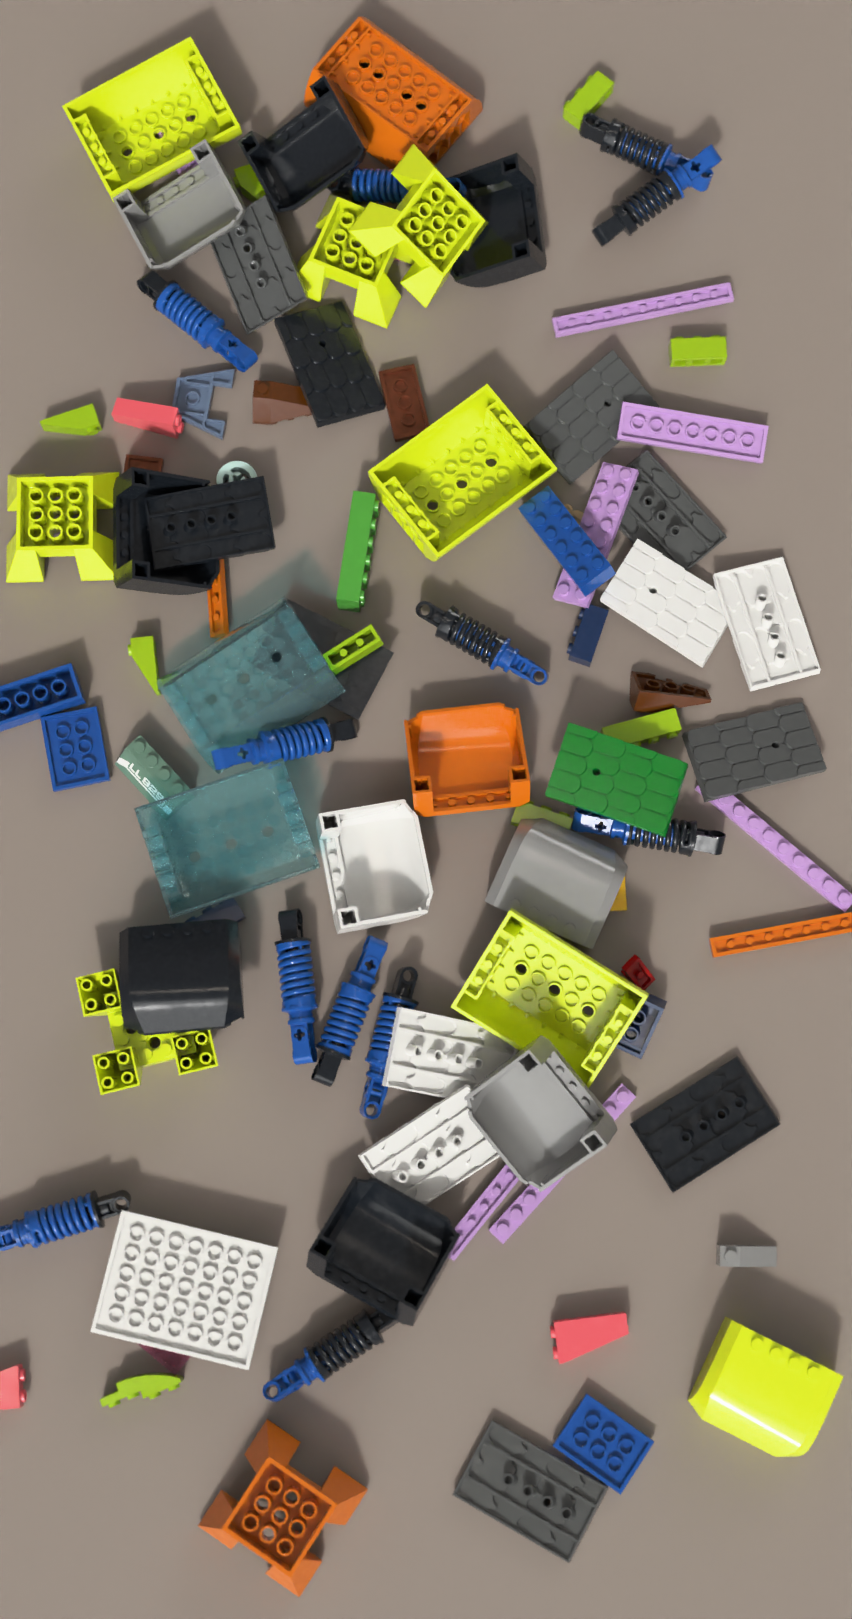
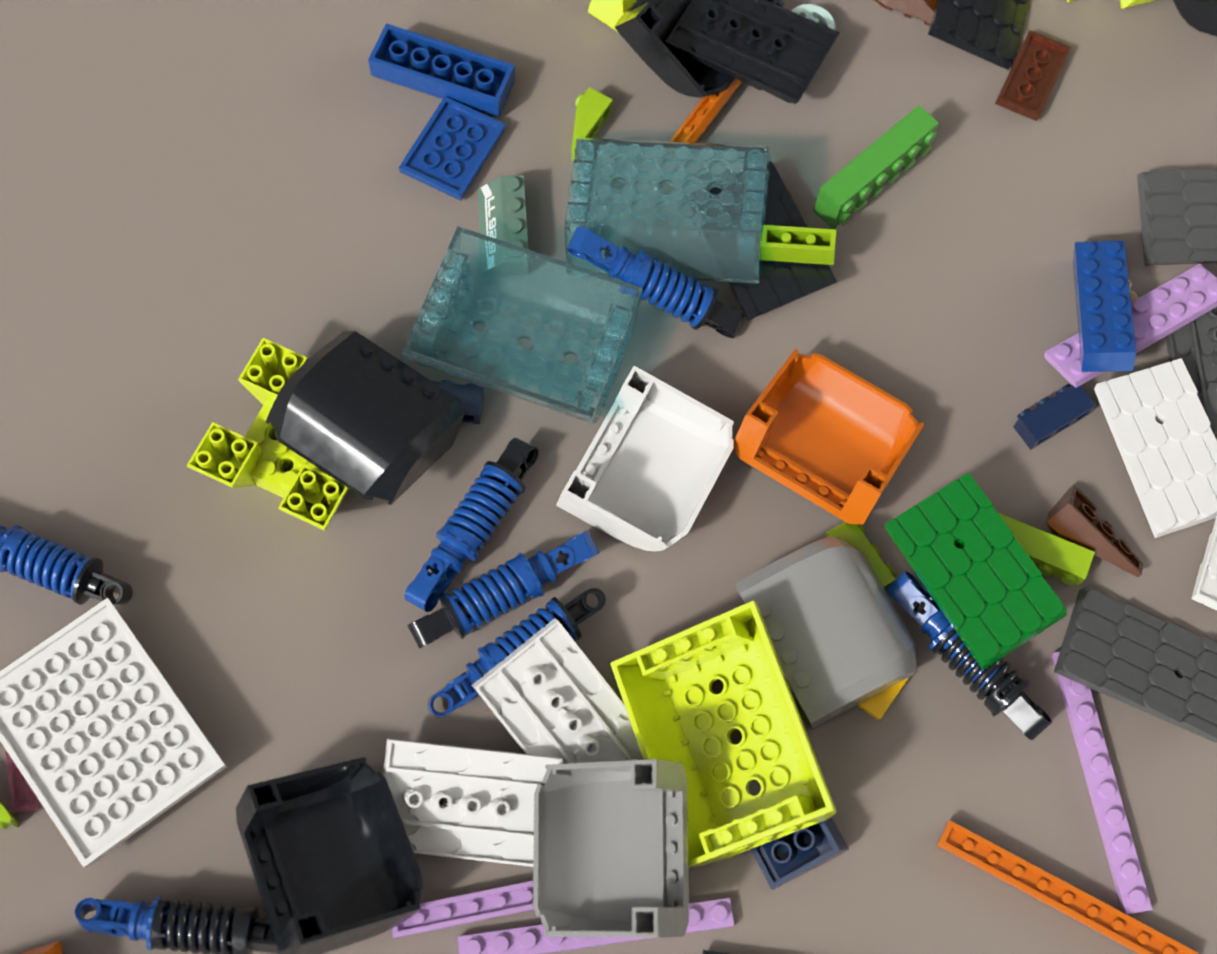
camera: 35 degrees right, 10 degrees down
(455, 451) = (1046, 144): neon yellow slope -> none
(479, 643) = (934, 338): black piece -> none
(637, 973) = (842, 791): red slope -> none

